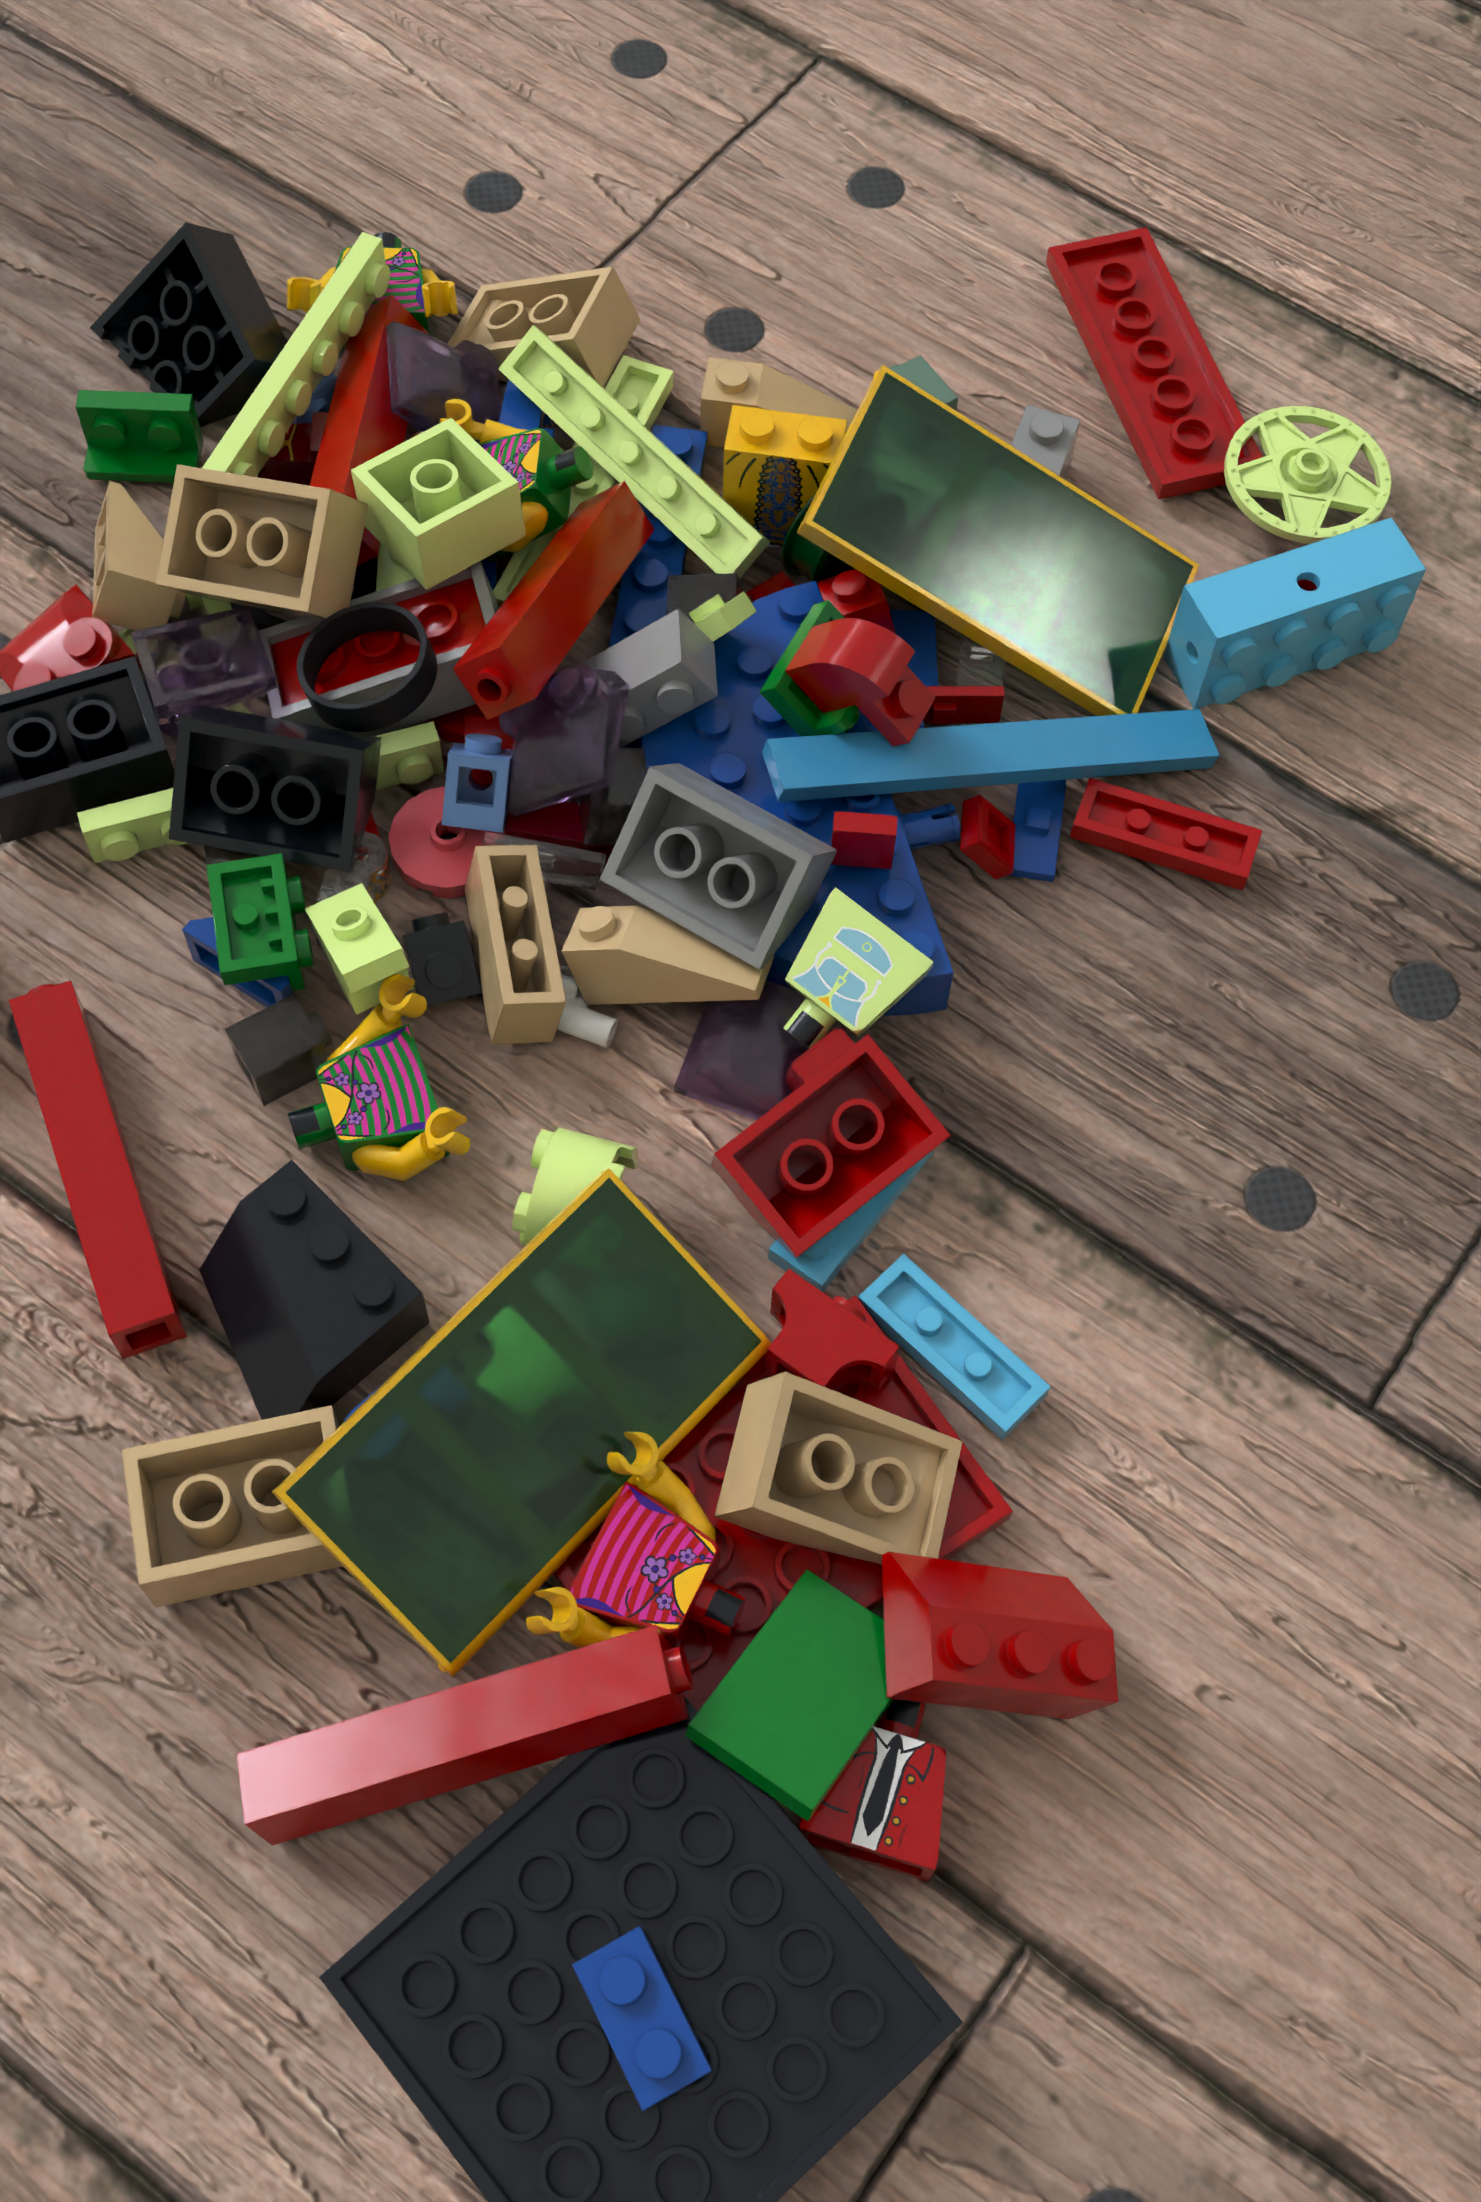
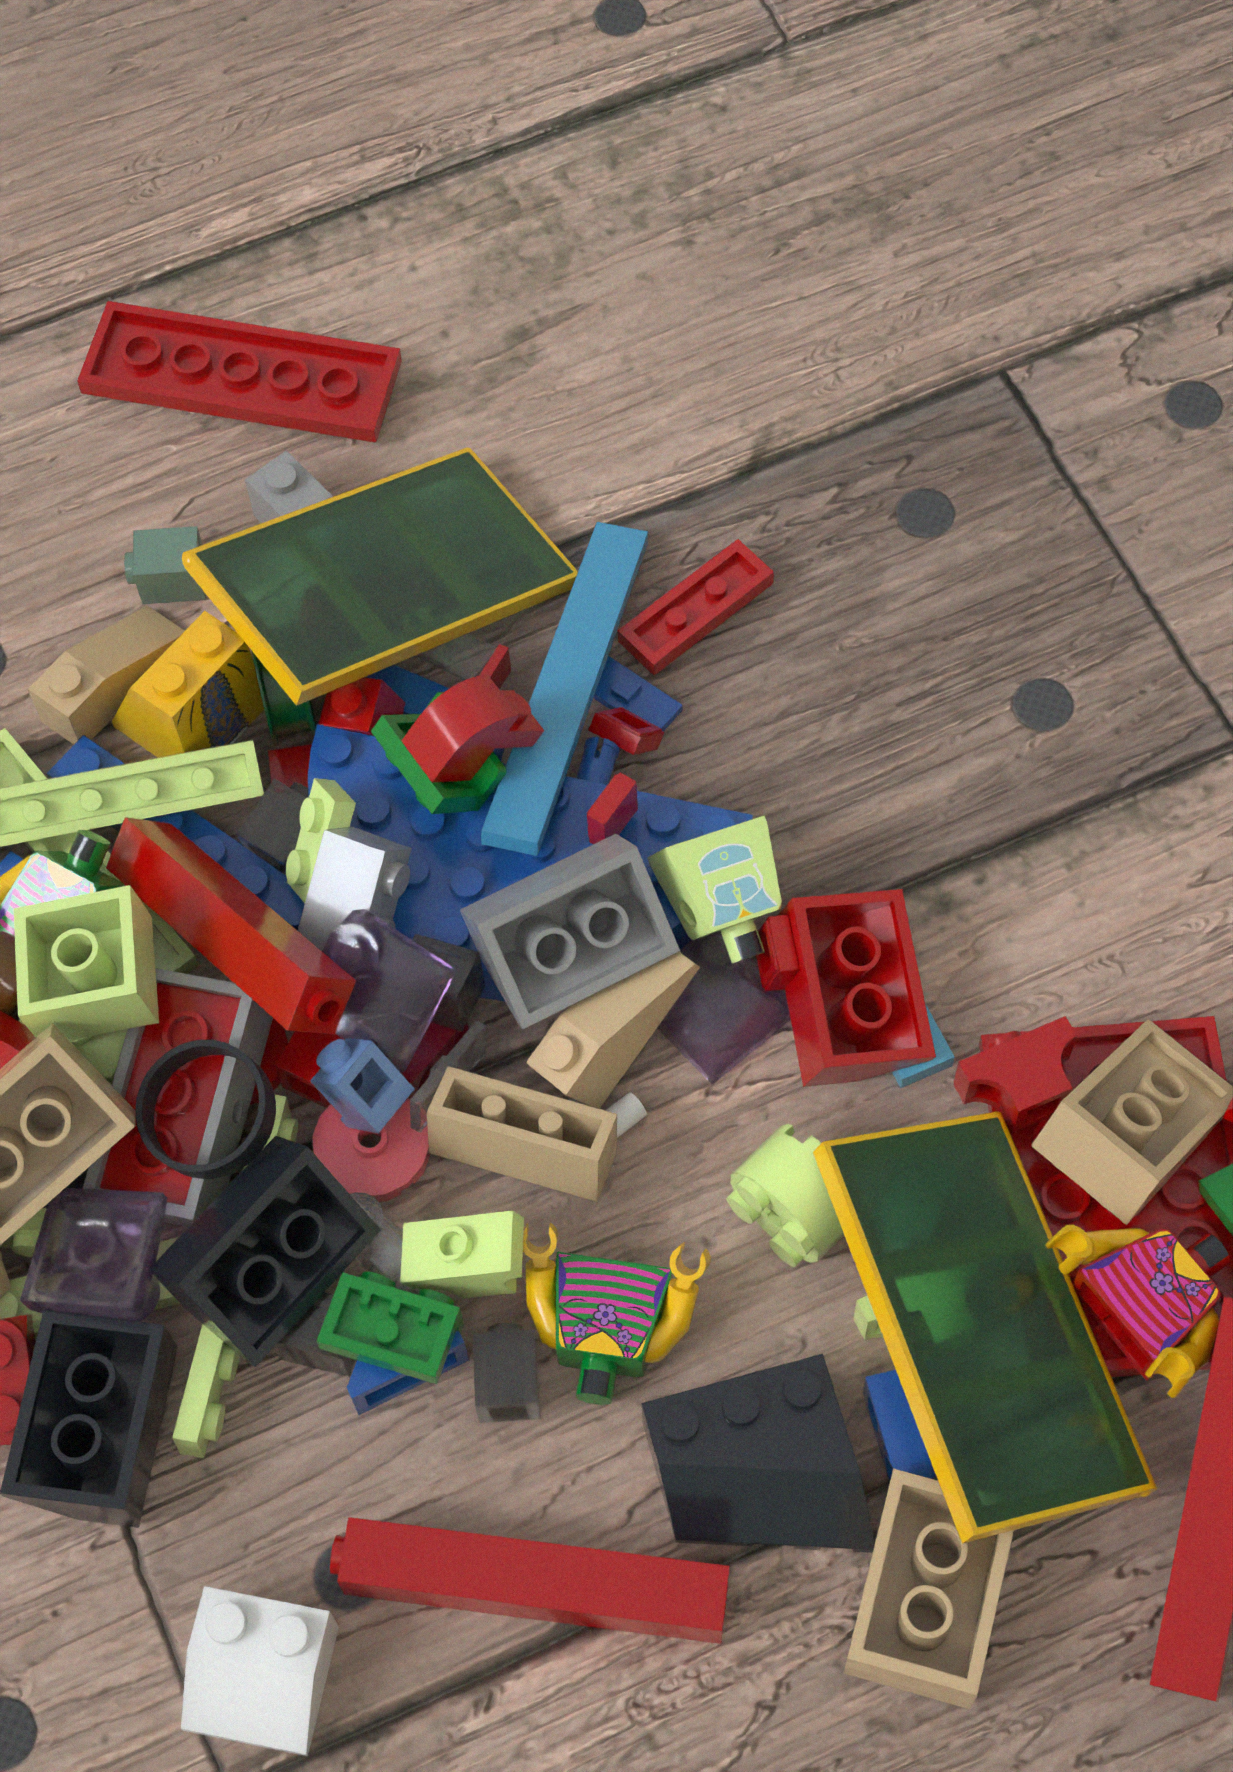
camera: 55 degrees left, 0 degrees up
(441, 959) = (489, 1190): black bracket -> none
(954, 1347) = (1055, 988): medium azure plate -> none
(1292, 613) = (568, 408): medium azure brick -> none
(1306, 473) = (433, 327): yellowish green wheel -> none

